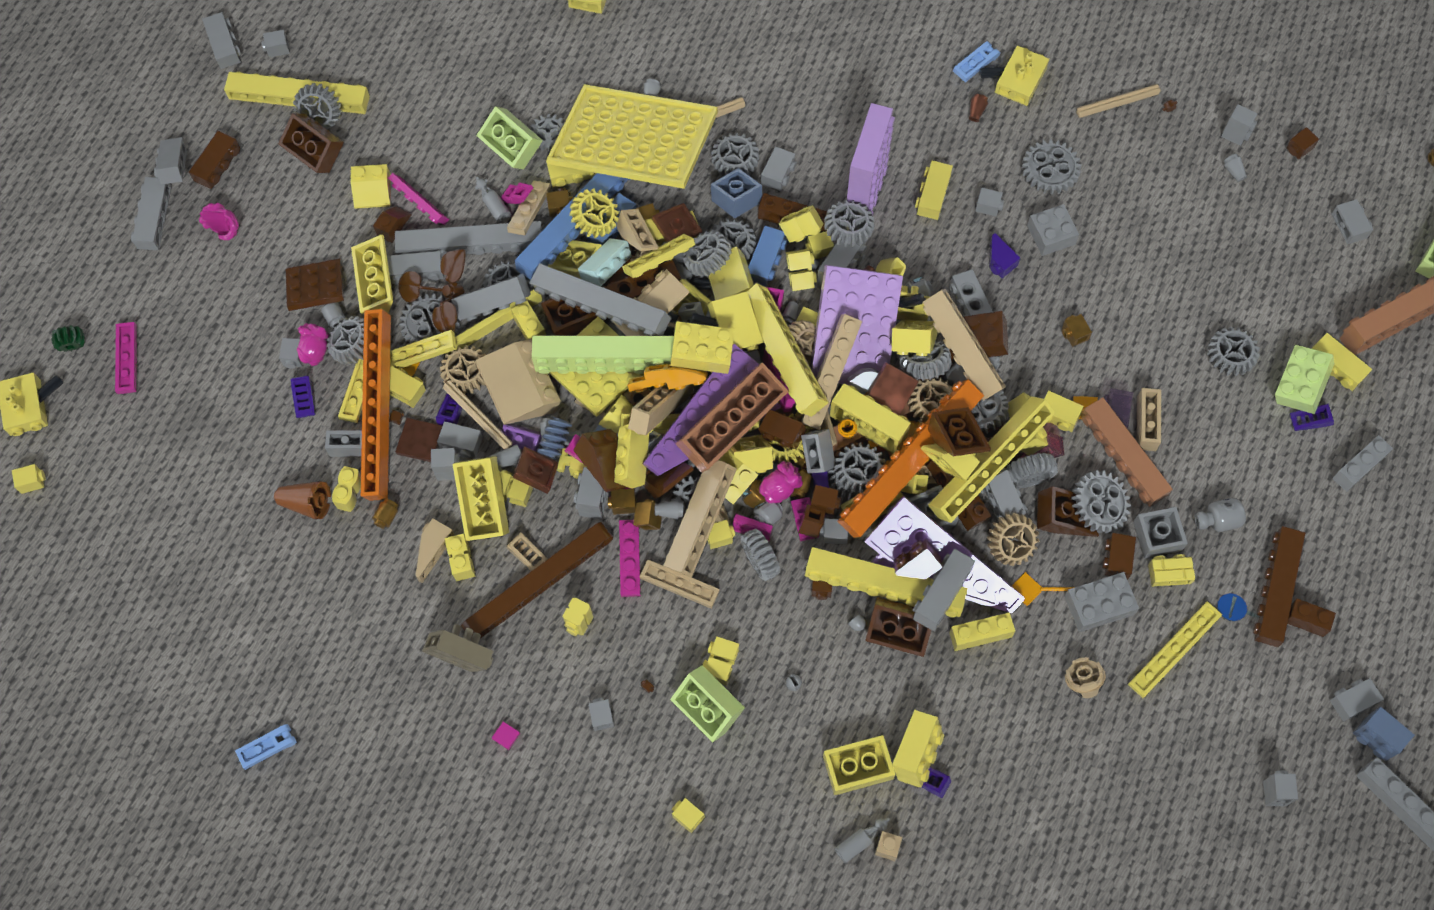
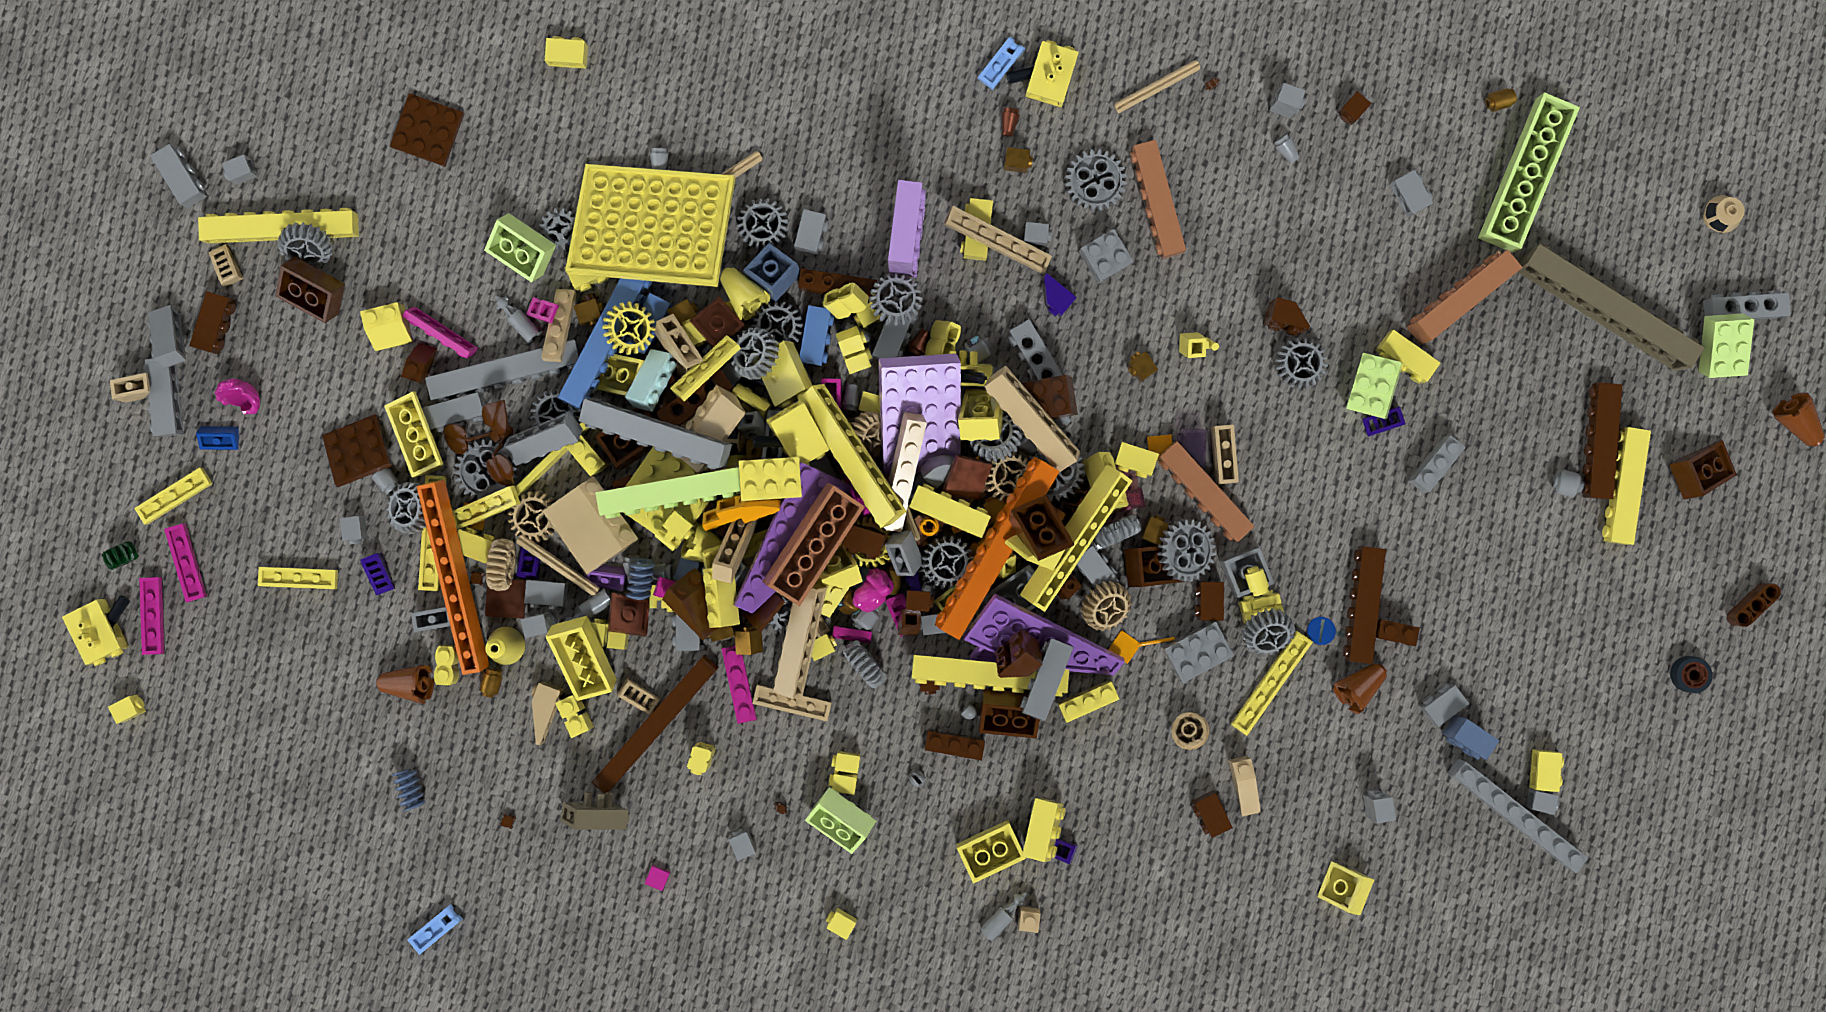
camera: 15 degrees left, 20 degrees up
(79, 399) = (151, 615): none -> dark pink plate
(125, 198) = (130, 388): none -> tan slope
(133, 298) = (173, 496): none -> light yellow plate
(189, 257) = (218, 438): none -> blue slope
(226, 388) = (297, 578): none -> light yellow plate
(242, 128) = (232, 278): none -> tan slope
(276, 599) = (408, 789): none -> sand blue piece
(312, 344) = (371, 517): dark pink hair -> none
(367, 651) = (508, 821): none -> reddish brown piece
(407, 481) = (505, 645): none -> light yellow cone
(423, 402) = (501, 564): none -> tan gear
(449, 39) = (427, 130): none -> reddish brown plate
(601, 389) = (677, 527): none -> light yellow brick
(669, 509) = (768, 636): light grey cone -> none
(707, 207) = (743, 293): none -> light yellow cone
(837, 651) = (954, 744): none -> reddish brown brick
(952, 196) = (997, 239): none -> tan plate
(980, 139) = (1018, 160): none -> pearl gold brick
(1070, 477) = (1154, 529): none -> pearl gold brick
(1098, 770) = (1212, 814): none -> reddish brown brick
(1108, 191) = (1158, 199): none -> nougat brick
(1130, 317) = (1195, 345): none -> light yellow brick
(1137, 747) = (1245, 785): none -> tan slope
(1170, 535) = (1257, 581): none -> light yellow brick
(1188, 593) = (1268, 631): none -> light grey gear
(1222, 305) = (1286, 316): none -> reddish brown slope
(1222, 515) = (1304, 543): light grey piece -> none
(1237, 875) = (1345, 888): none -> light yellow slope
(1267, 665) = (1360, 687): none -> dark orange cone

